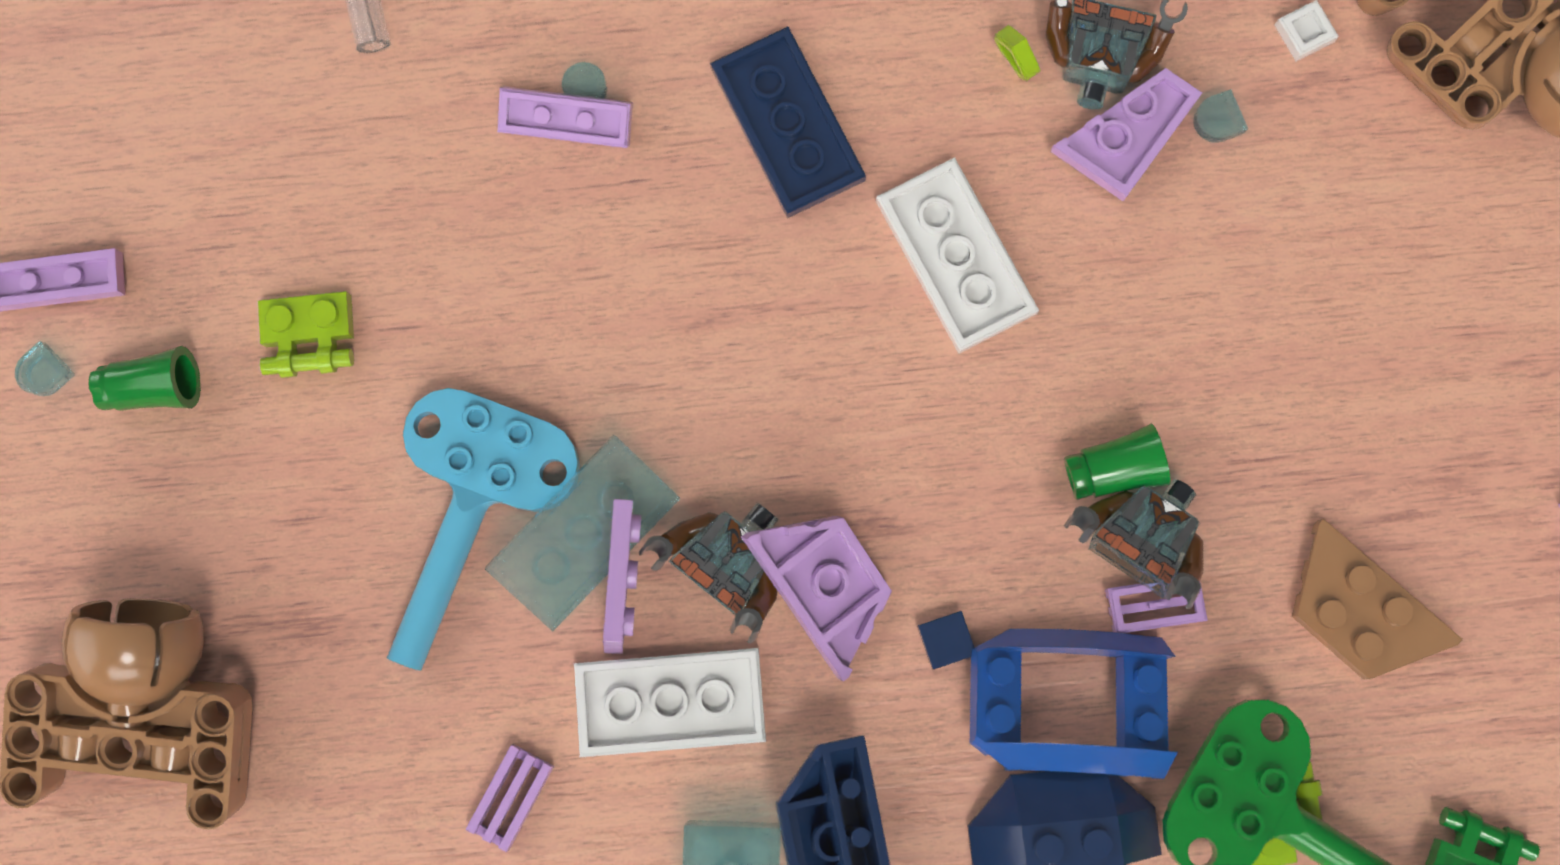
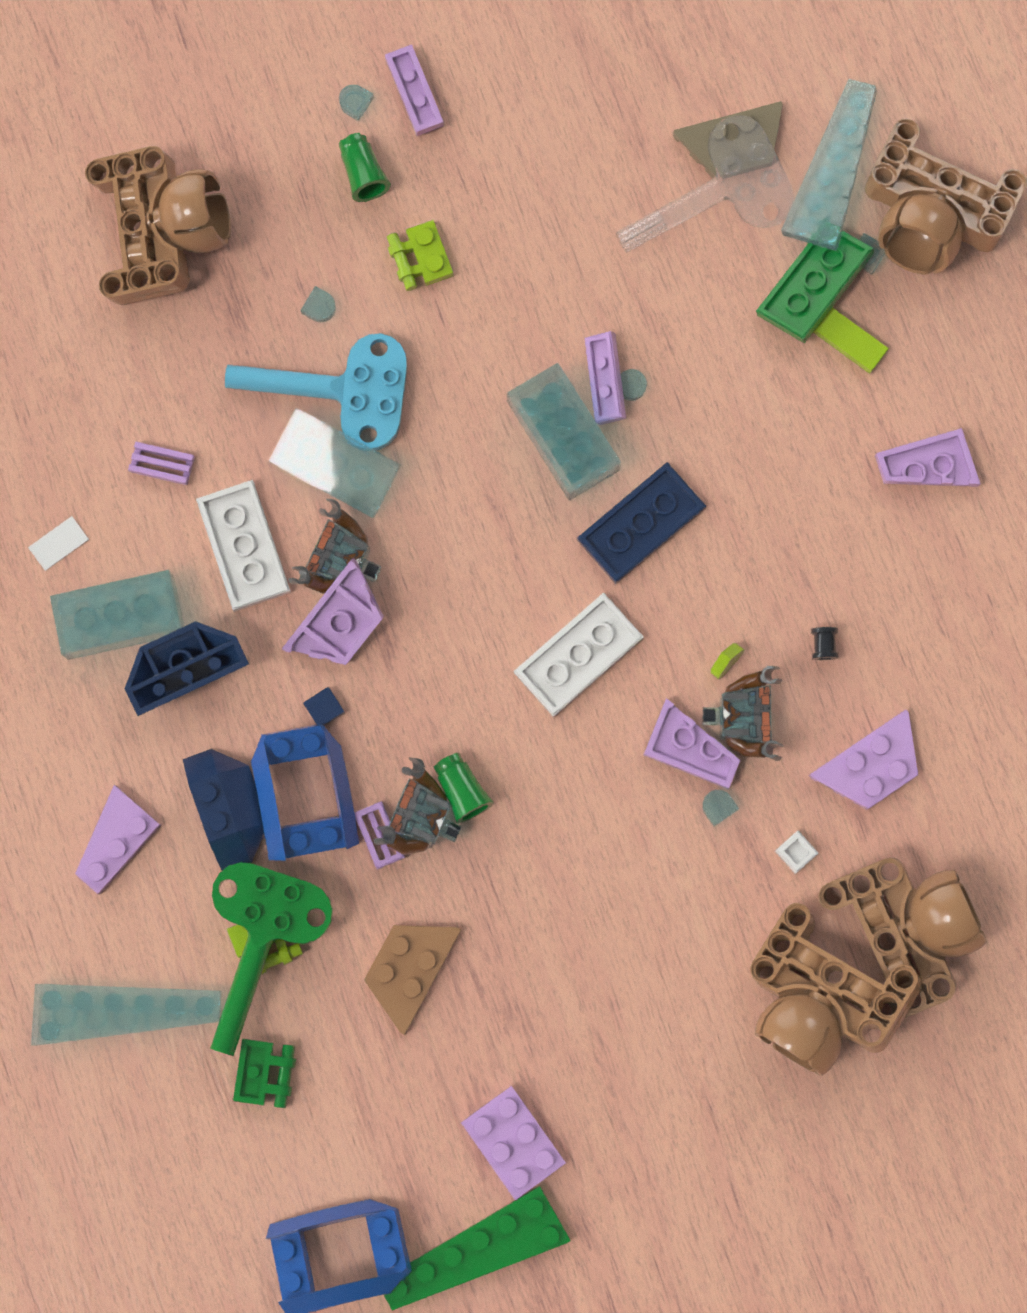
camera: 70 degrees right, 0 degrees up
(337, 499) = (319, 306): none -> clear light blue tile
(621, 576) = (310, 491): lavender wing -> none
(628, 189) = (563, 431): none -> clear light blue brick

